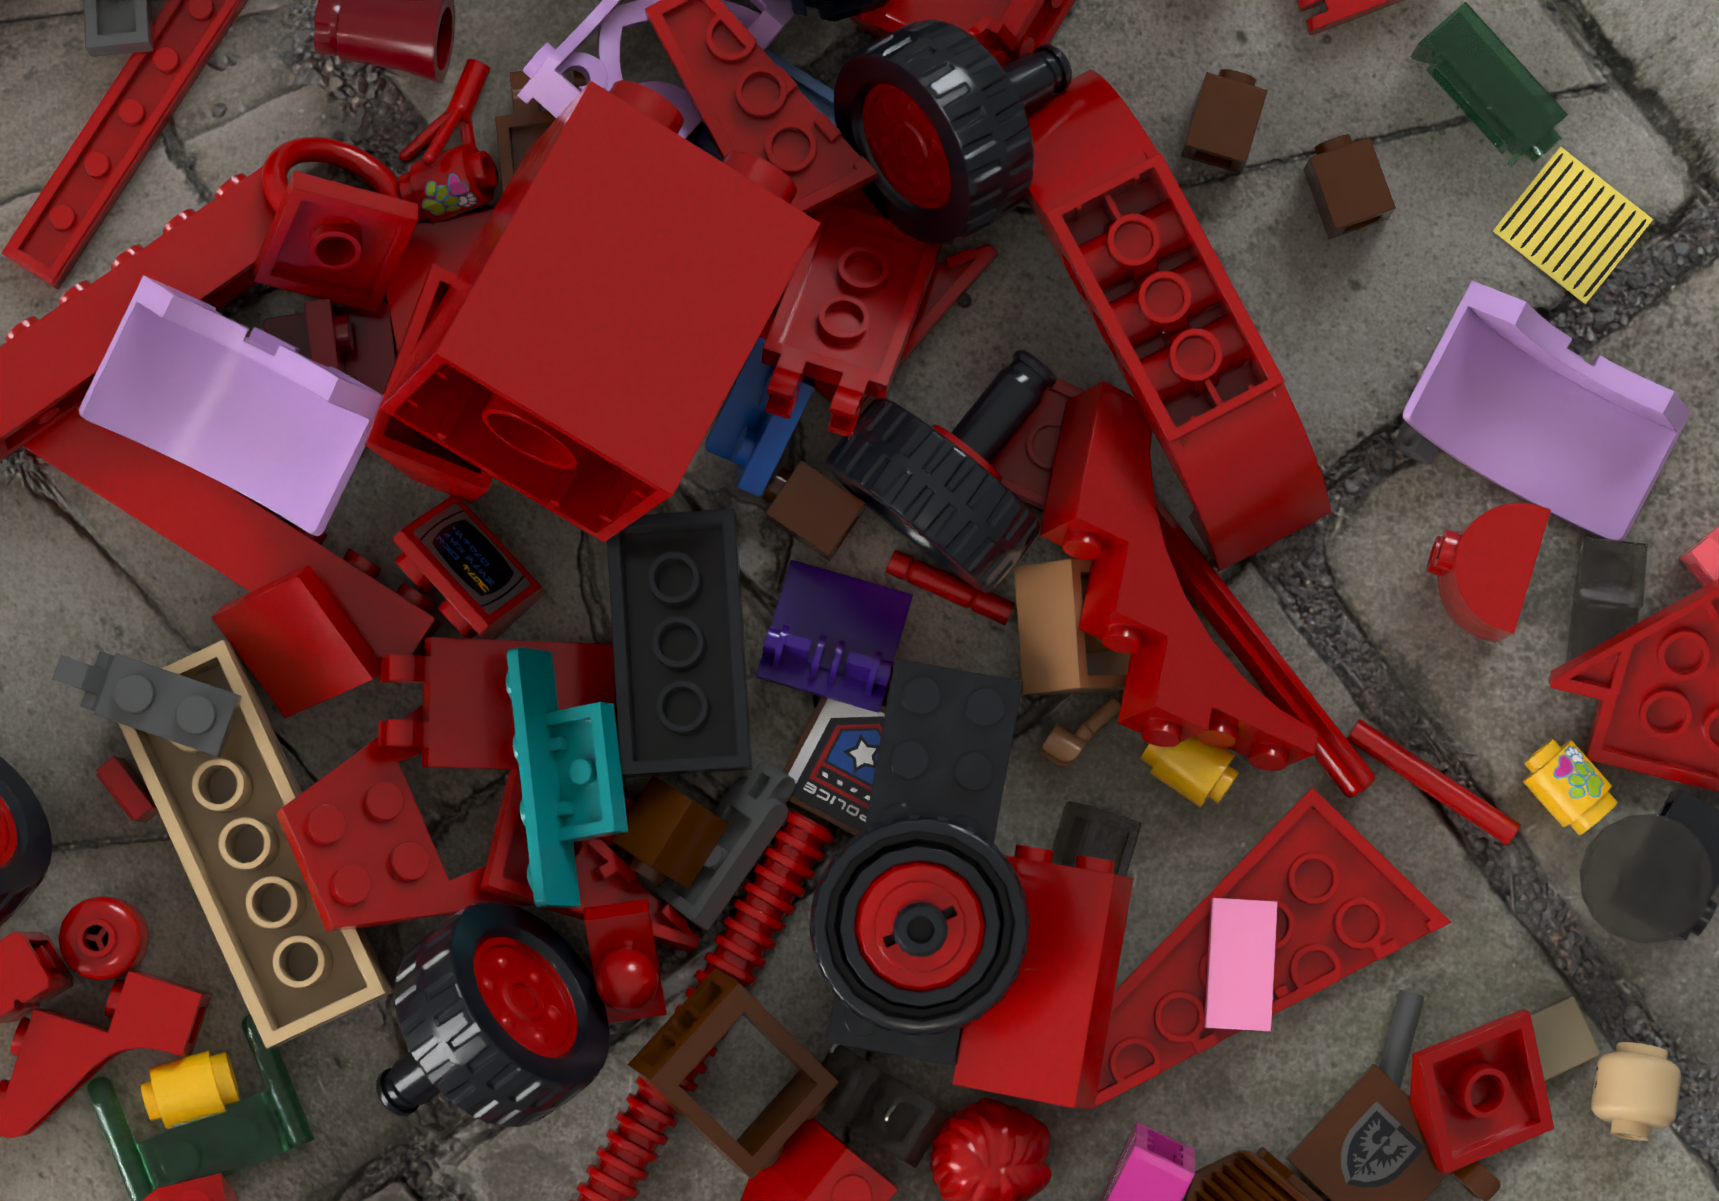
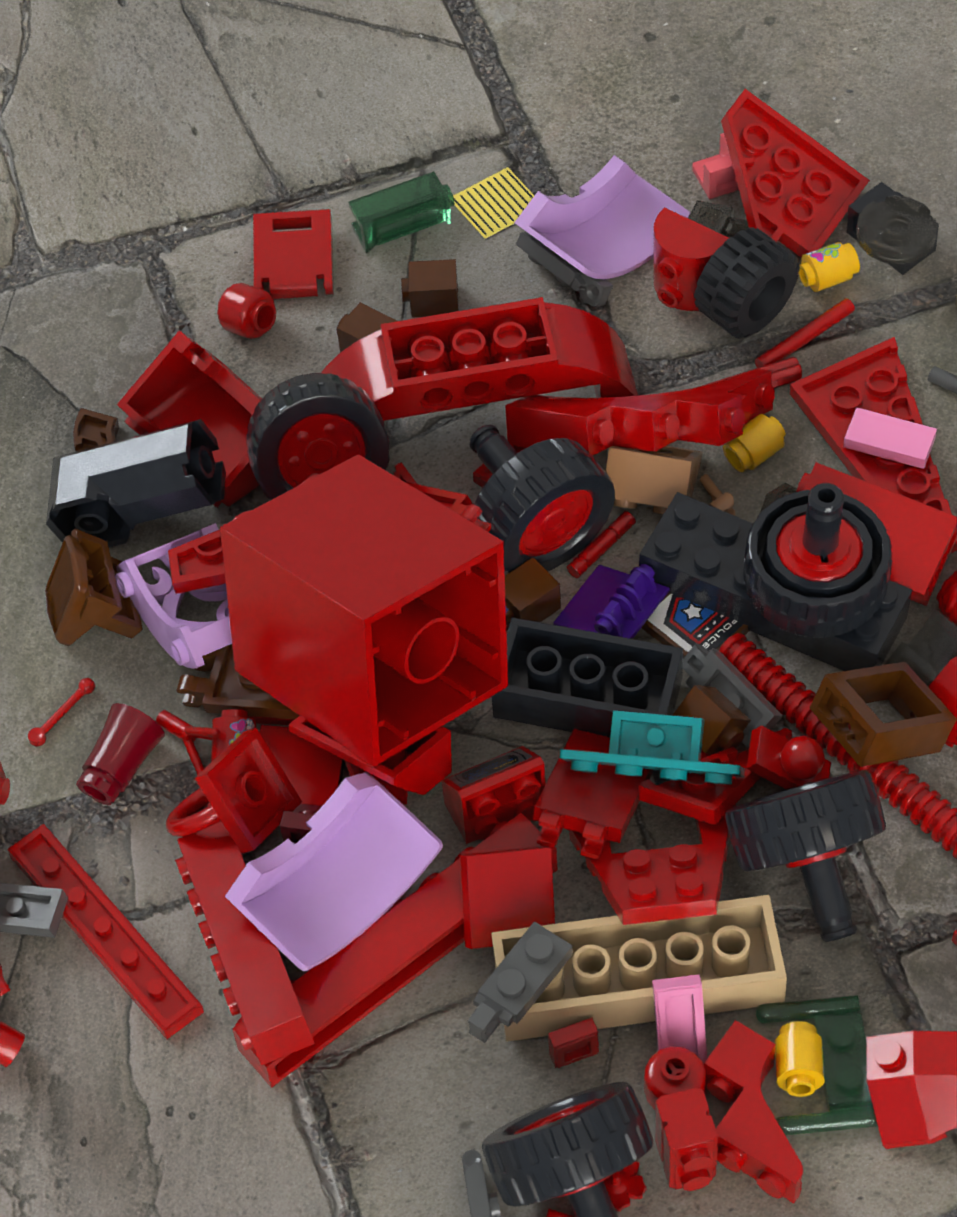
camera: 70 degrees left, 30 degrees down
(180, 922) = (680, 1014): none -> bright pink tile
(1466, 673) = (746, 282): none -> black tyre

